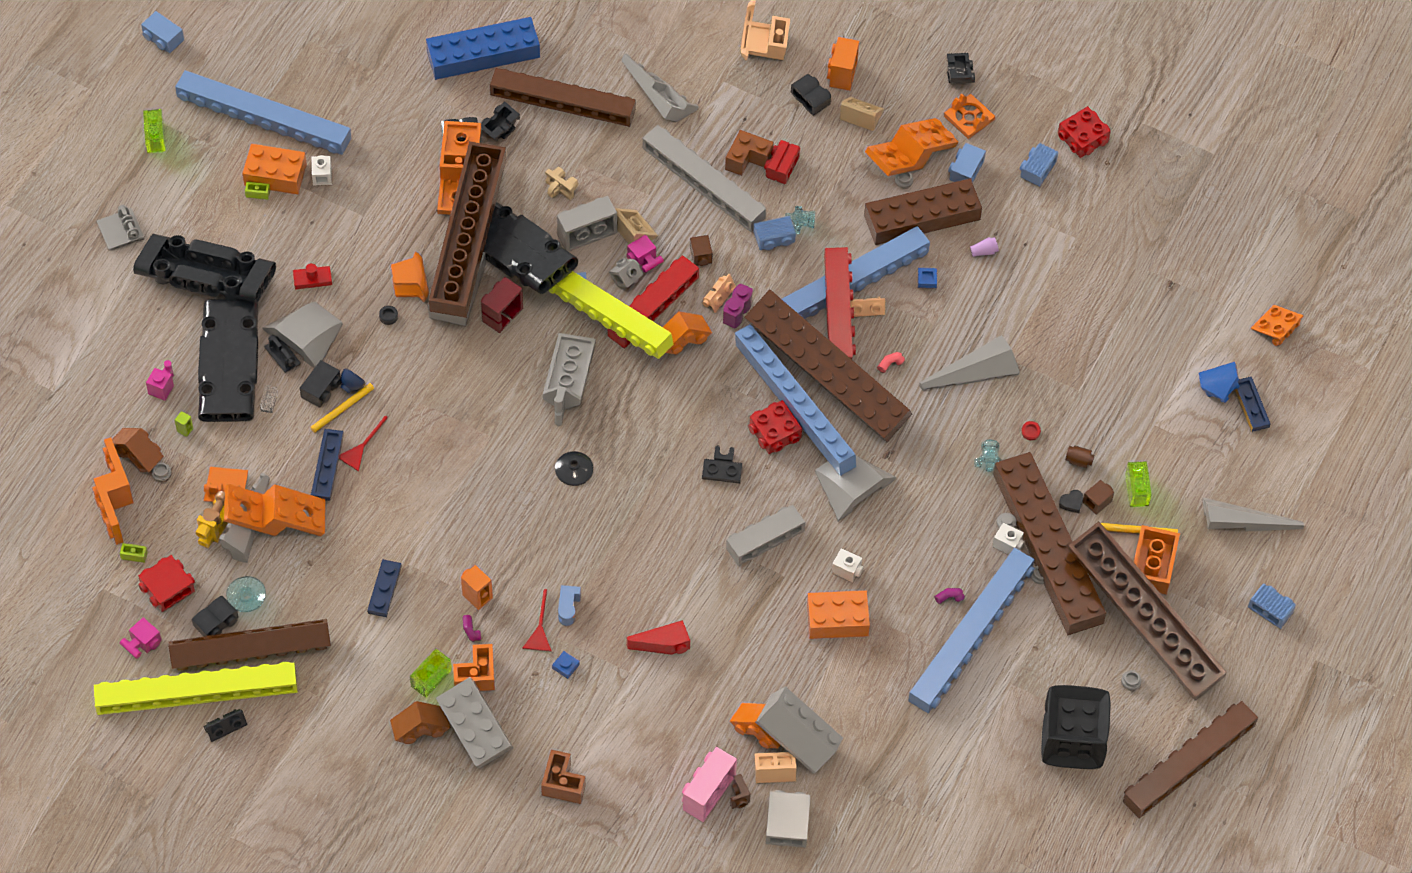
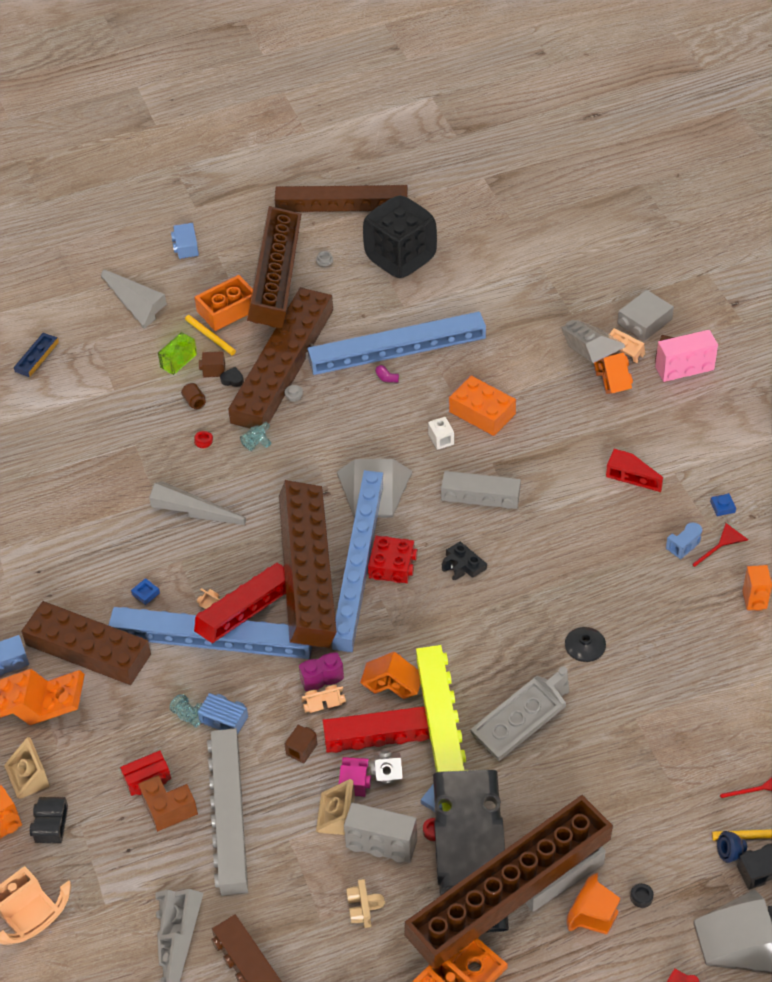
camera: 135 degrees left, 10 degrees down
(504, 298) = (529, 808): dark red piece -> none
(889, 359) = (245, 552): coral arm -> none
(985, 247) = (71, 582): lavender cone -> none
(1008, 538) = (307, 378): white brick -> none
(1220, 381) = (37, 376): blue slope -> none

